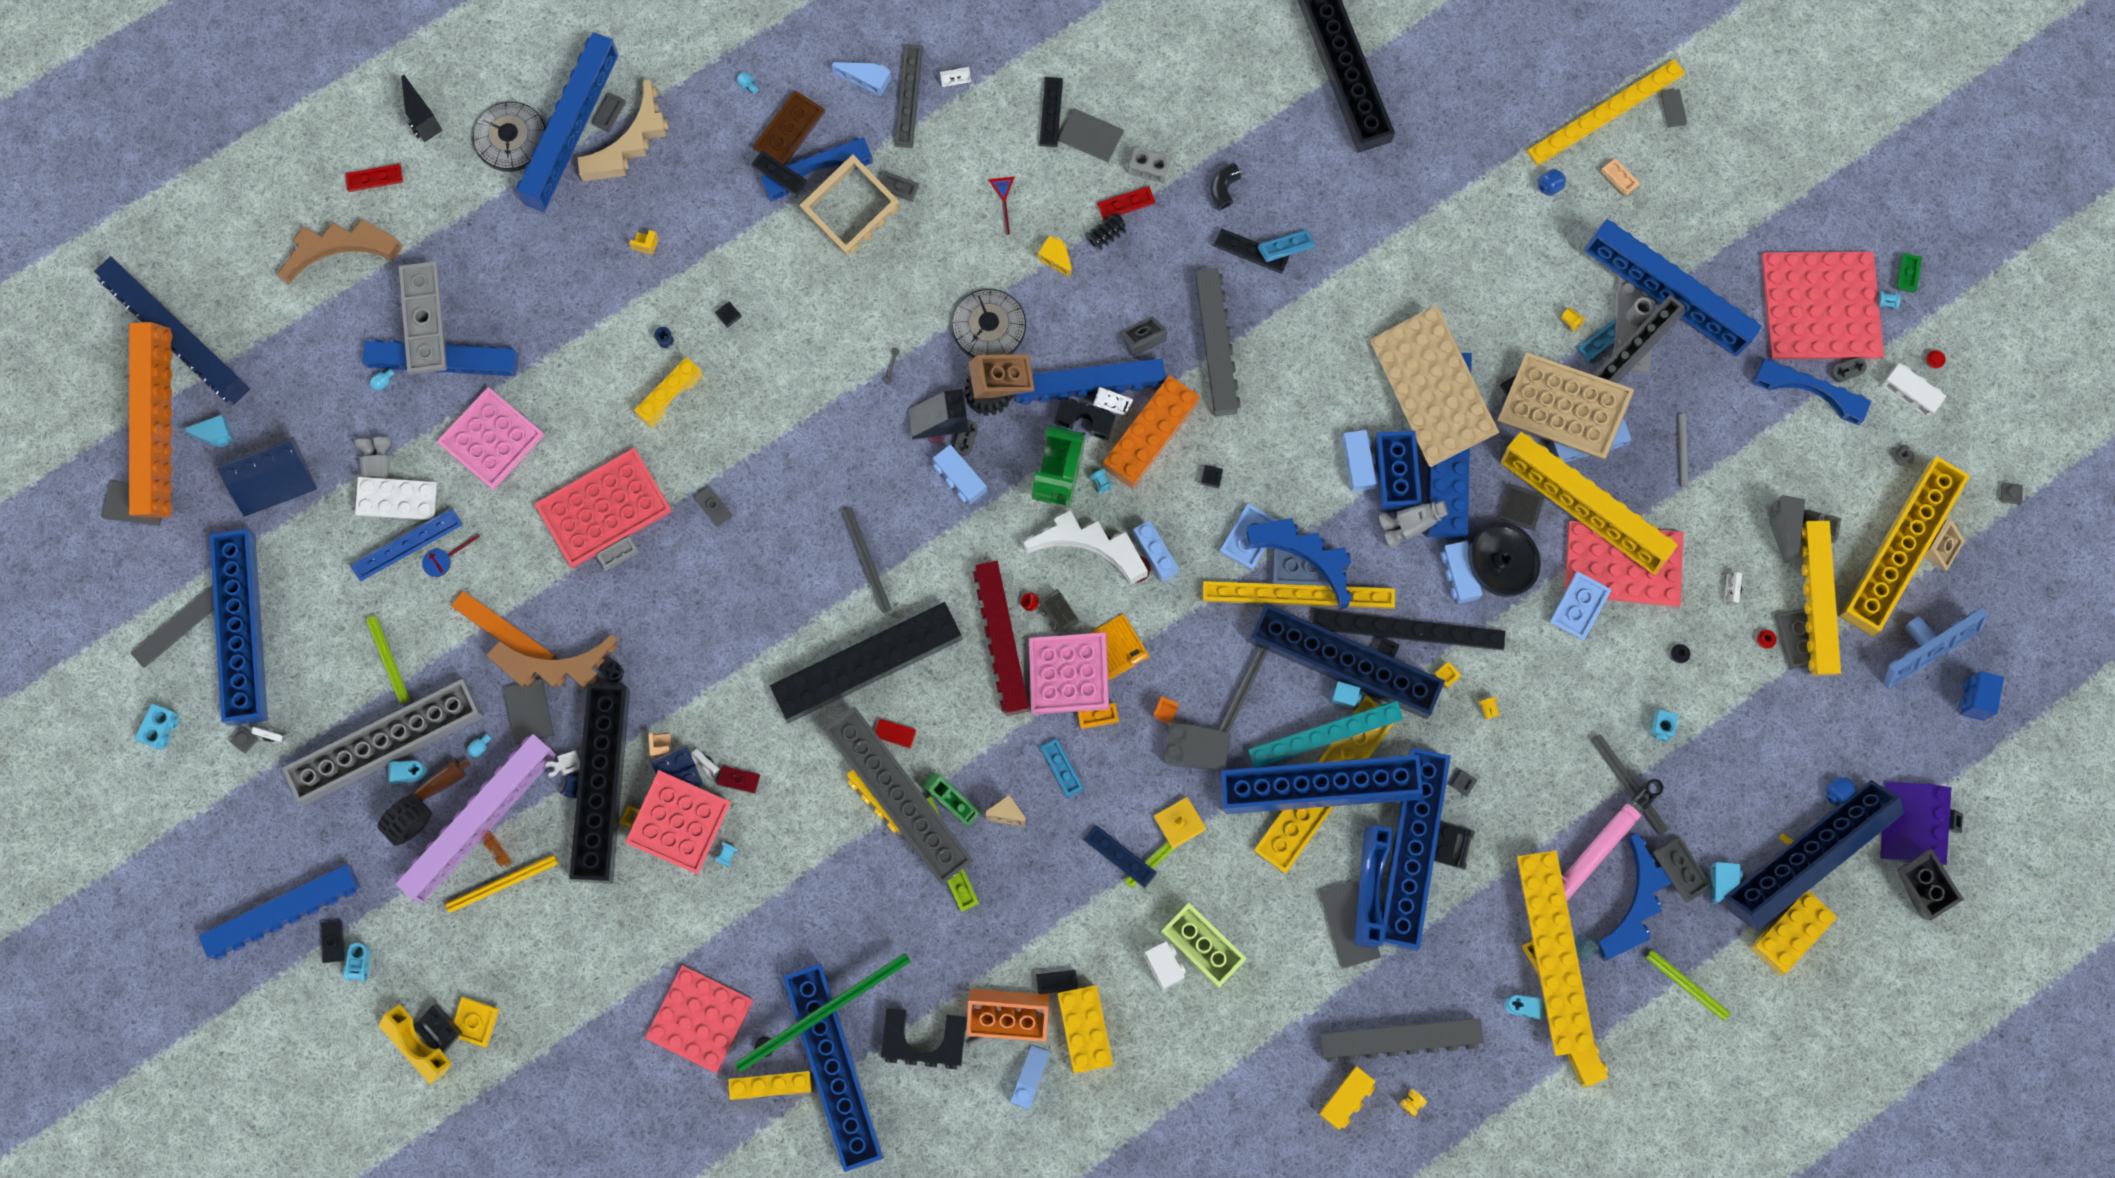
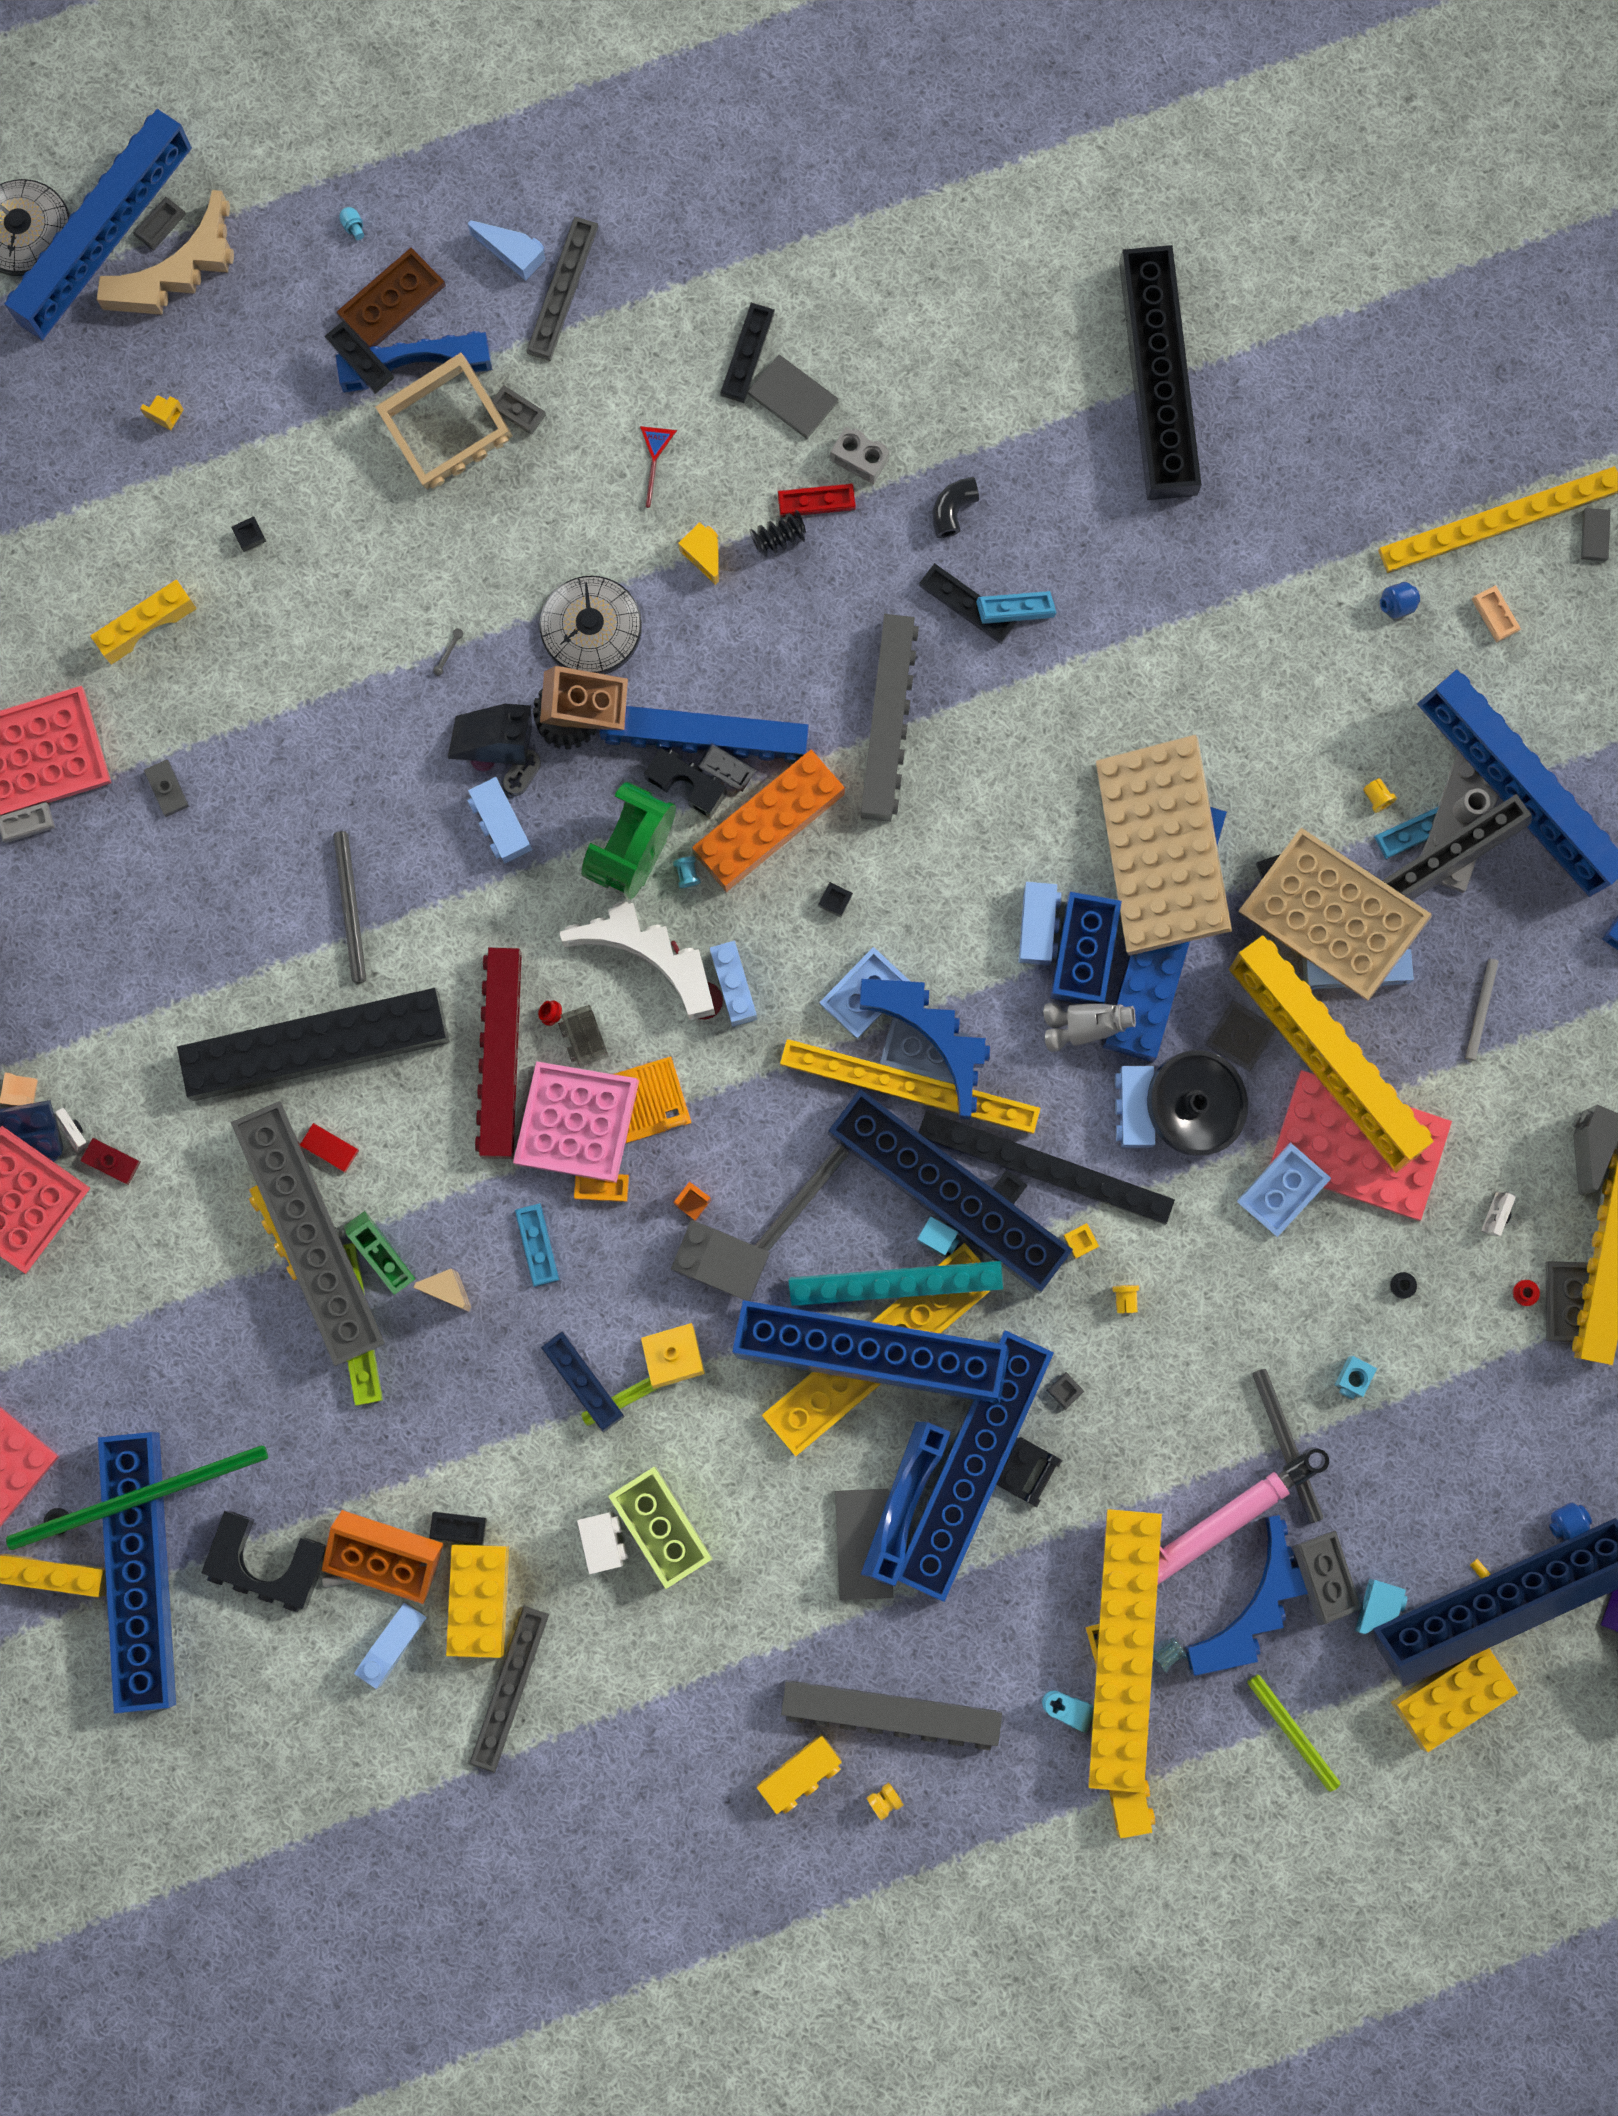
camera: 15 degrees right, 5 degrees up
(668, 341) = (156, 553): dark blue bush -> none
(725, 854) = (68, 1256): medium azure bush -> none
(955, 76) = (630, 274): white piece -> none
(1122, 1088) = (509, 1689): none -> dark grey tile
(1144, 336) = (793, 687): dark grey slope -> none

